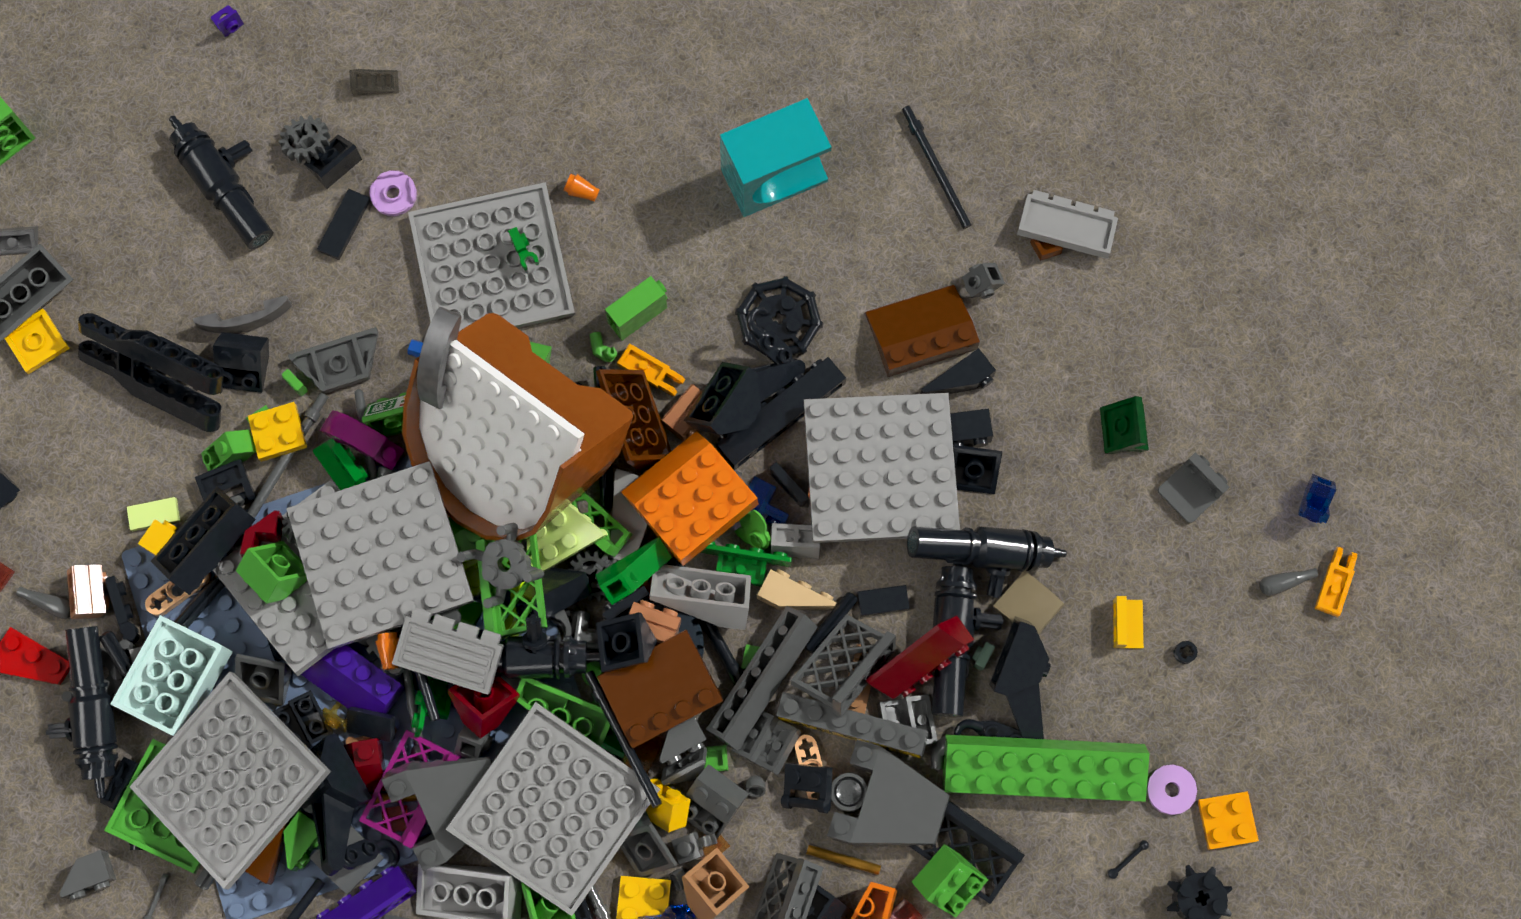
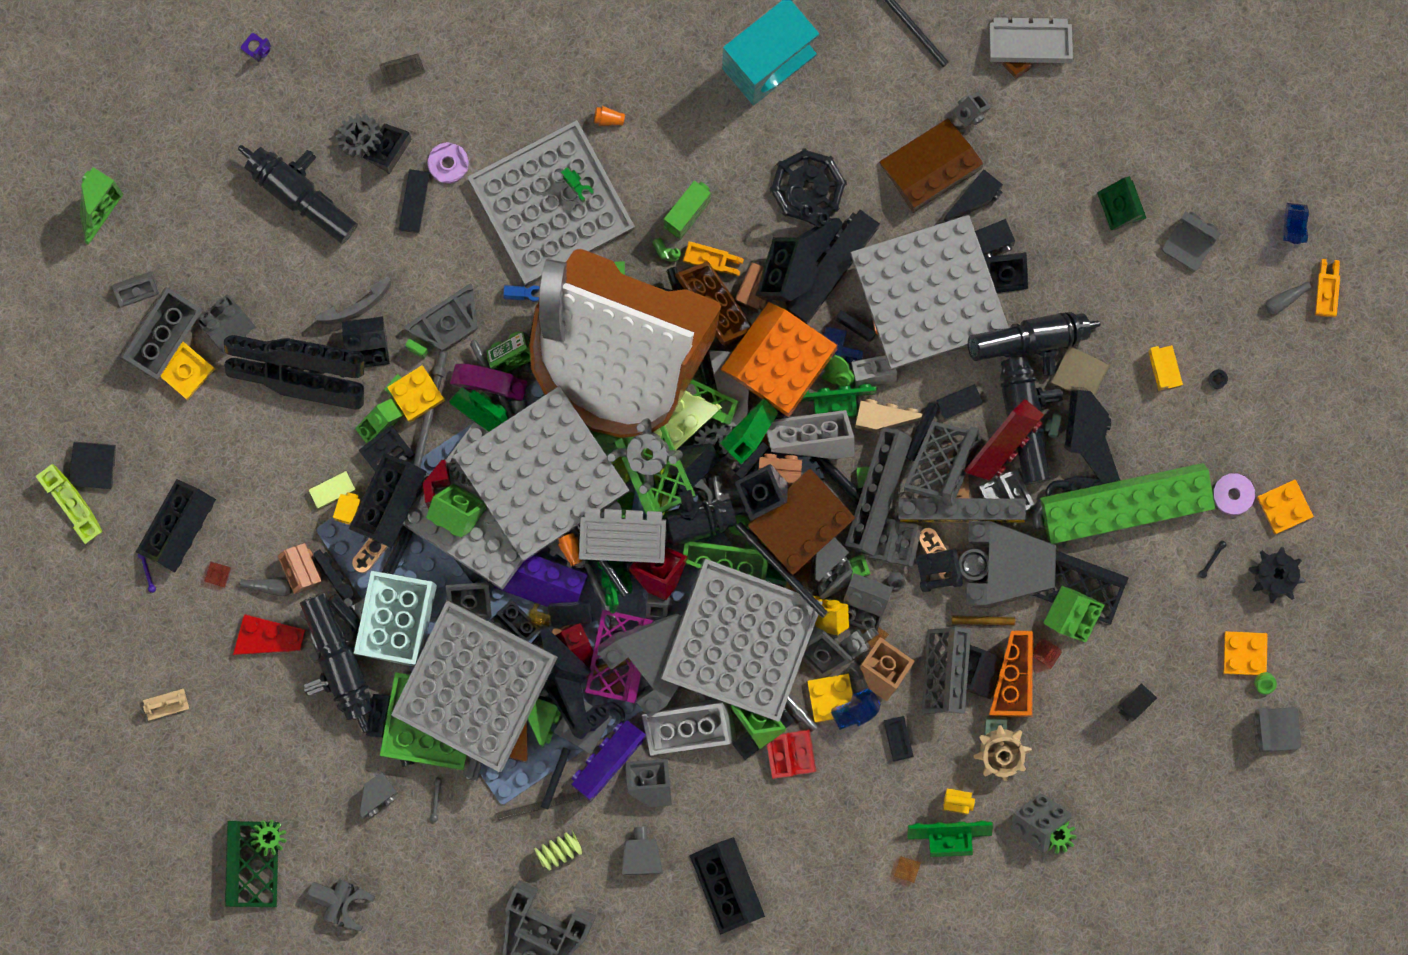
camera: 15 degrees left, 5 degrees up
(96, 297) = (224, 320): none -> dark grey slope

